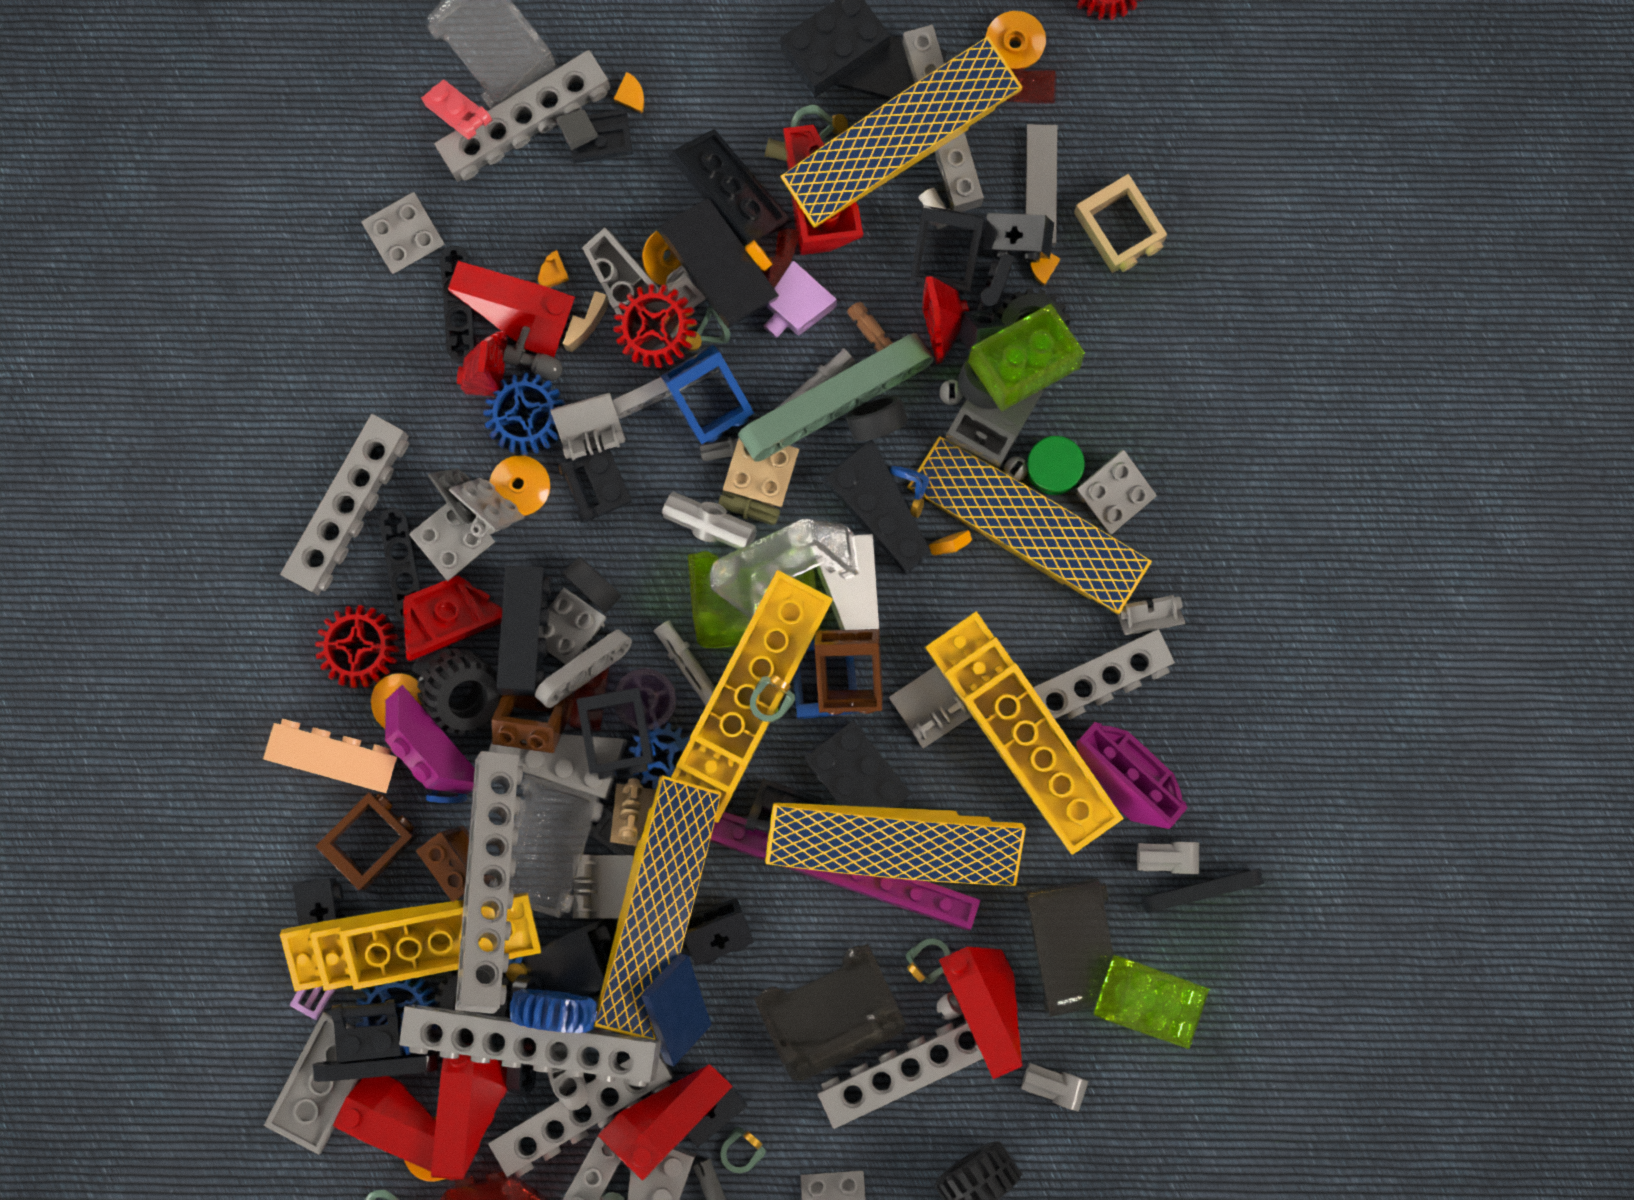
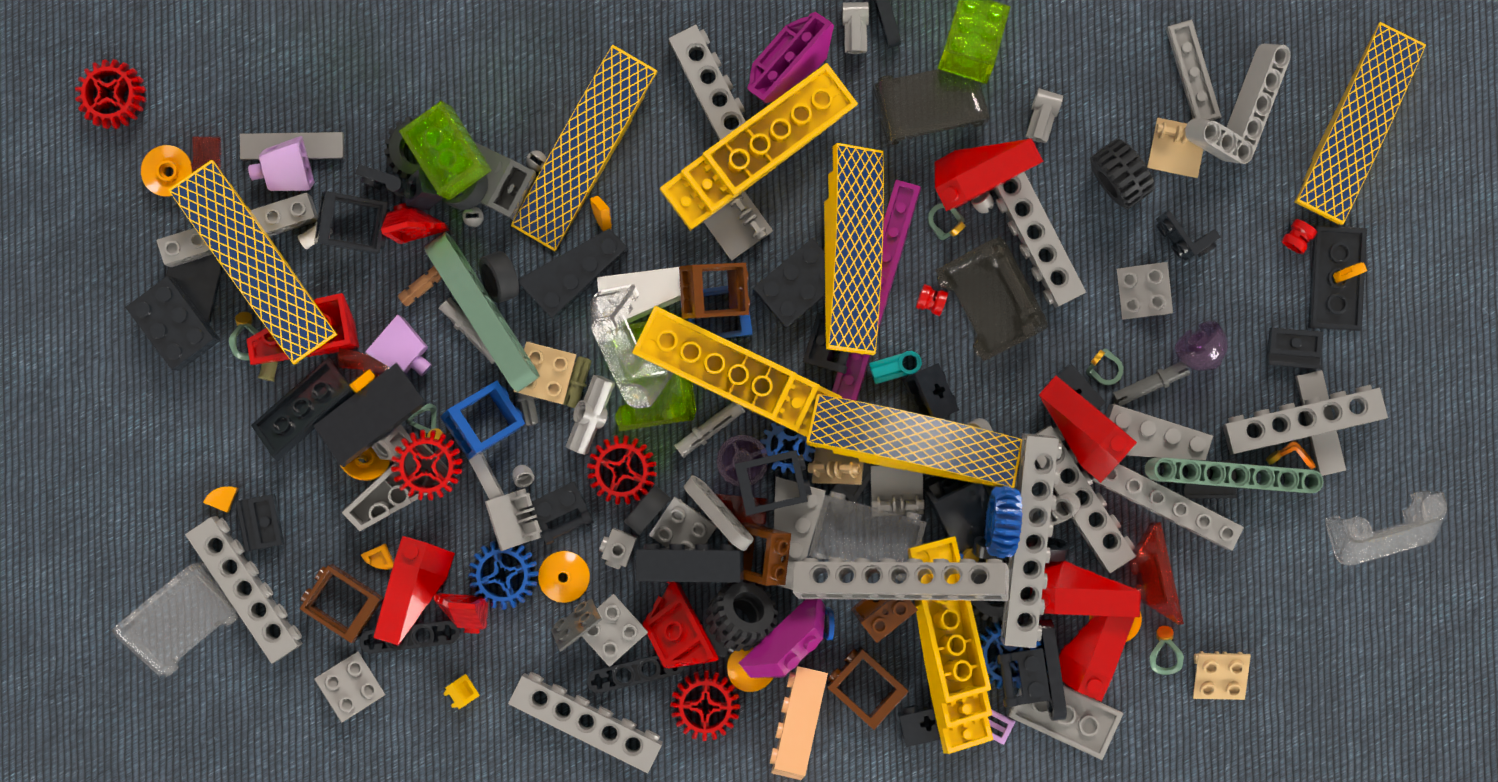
camera: 100 degrees left, 5 degrees up
(389, 361) = (461, 691): none -> yellow tile
(456, 109) = (240, 646): coral plate -> none
(490, 507) = (583, 600): light grey hinge -> none
(510, 191) = (311, 595): none -> reddish brown window
(513, 354) = (452, 587): dark grey hand -> none
(544, 365) = (460, 561): dark grey cylinder -> none
(549, 549) = (617, 548): none -> light grey brick
(576, 128) = (255, 541): dark grey slope -> none
(581, 328) = (428, 529): tan slope -> none
(640, 440) = (522, 476): none -> light grey hinge
(649, 545) = (601, 460): none -> red gear
(676, 1009) = (996, 422): dark blue tile -> none
(751, 886) = (892, 367): none -> teal piece
(783, 686) = (727, 347): sand green piece -> none
(837, 933) = (925, 300): none -> red wheel
(909, 474) = (546, 245): blue piece -> none
(1004, 228) = (331, 175): black brick -> none
(1015, 174) = (284, 167): none -> lavender torso
(1044, 268) = (360, 143): light orange tile -> none
(1055, 465) = (532, 127): green head -> none
(1087, 208) = (315, 108): tan window -> none
(1116, 492) = (553, 76): light grey hinge -> none
(1139, 618) = (659, 52): light grey hinge -> none

